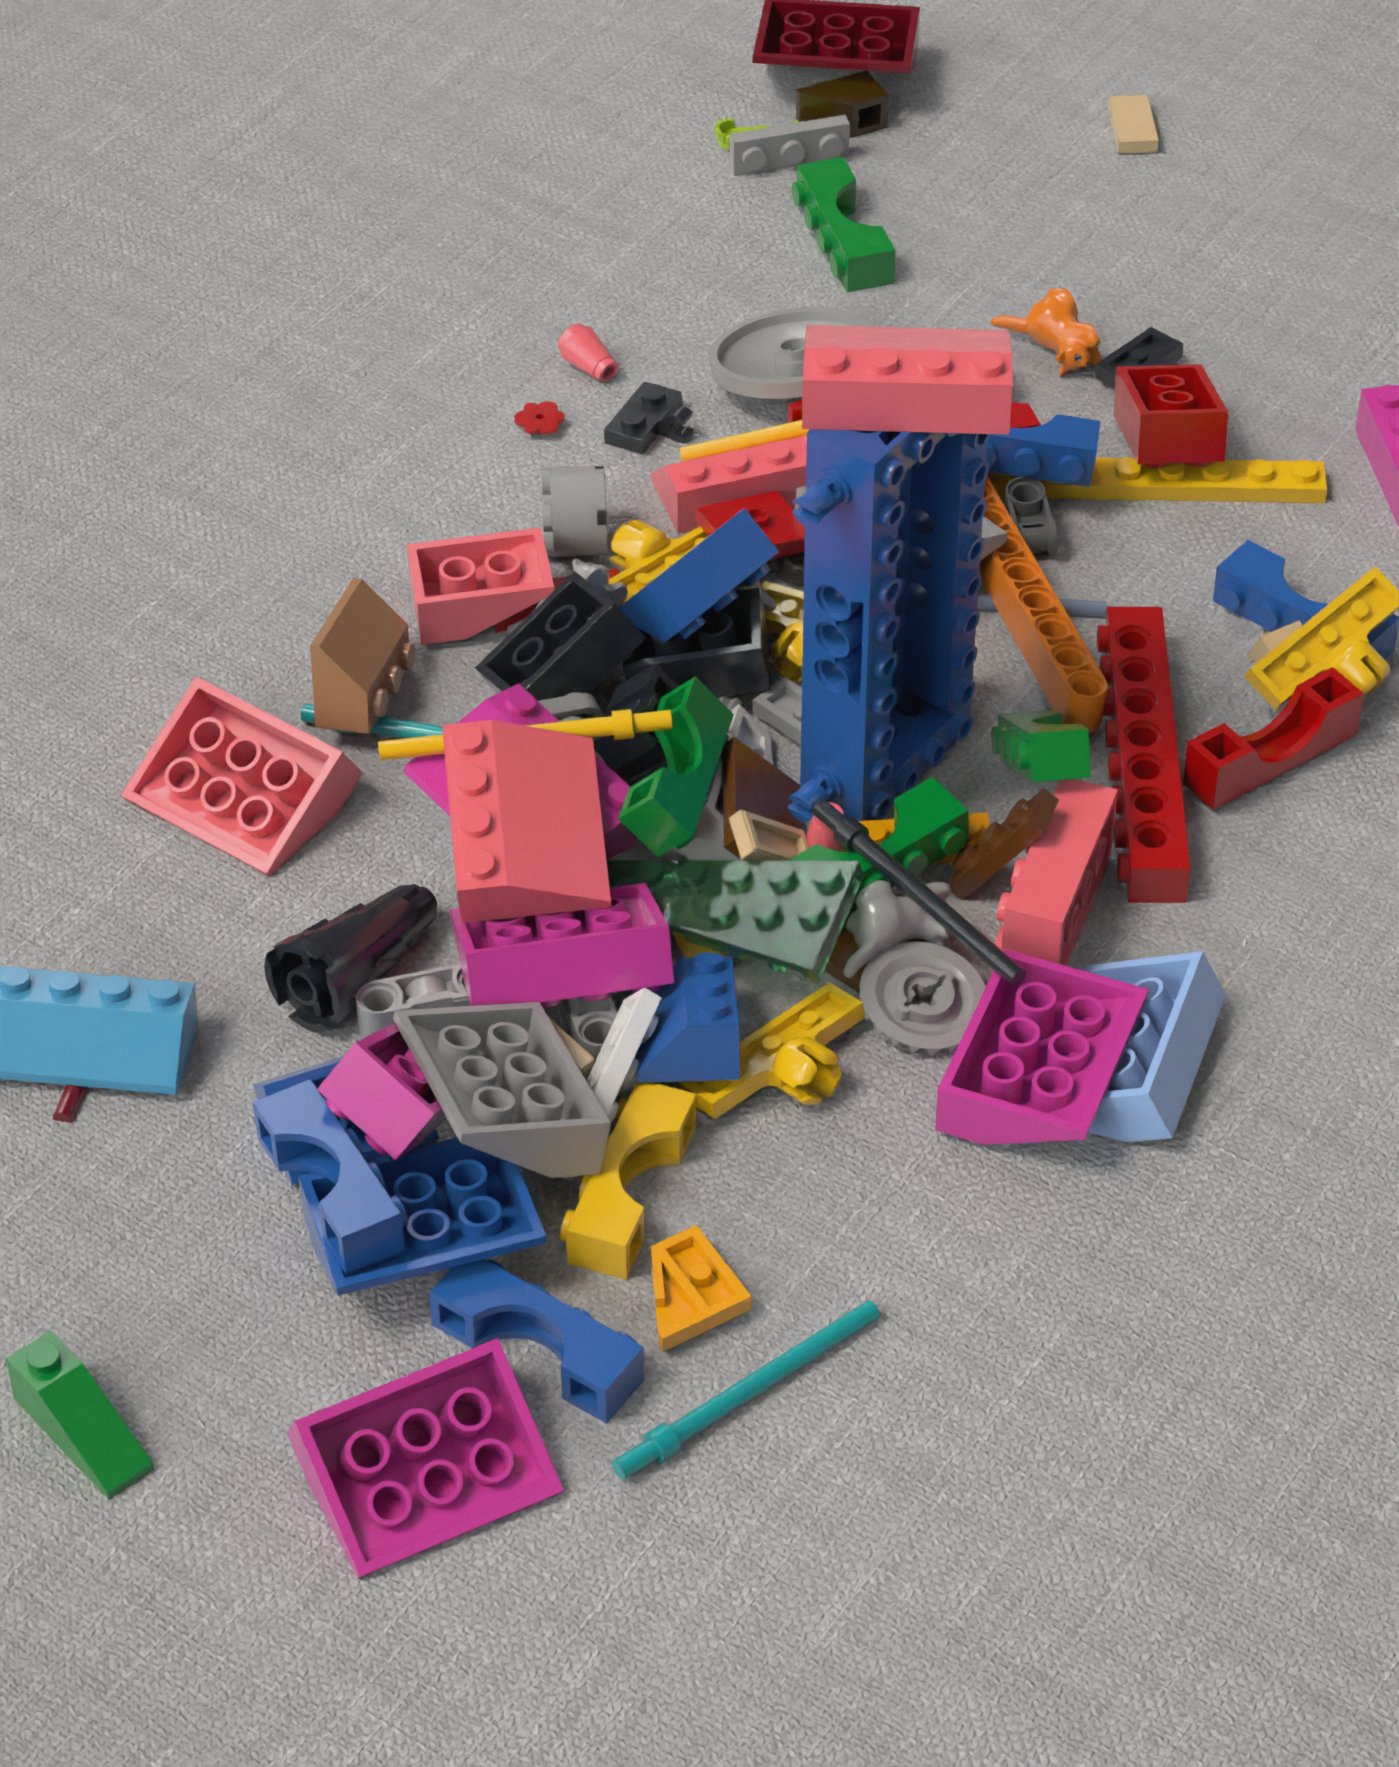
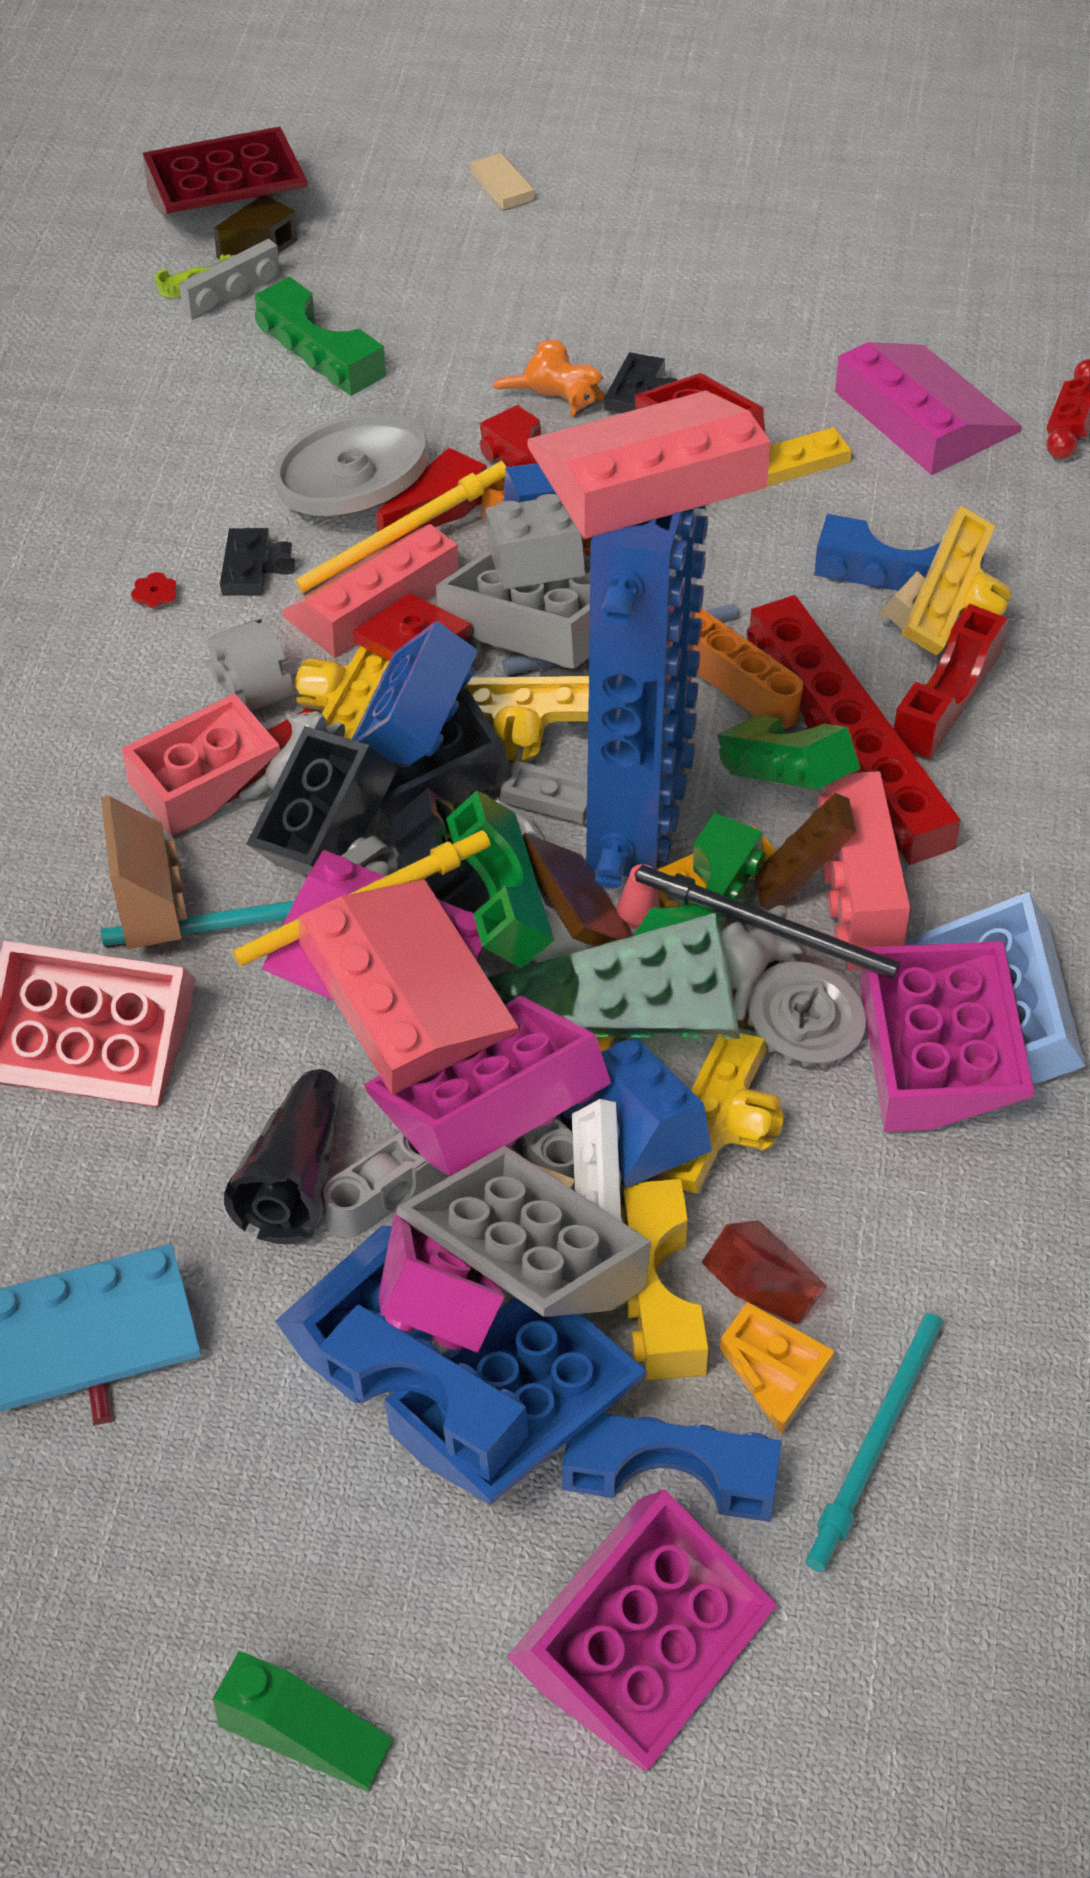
camera: 25 degrees left, 5 degrees up
(586, 351) = (164, 517): coral cone -> none
(726, 1201) = (763, 1271): none -> clear red slope
(766, 839) = (606, 919): tan tile -> none

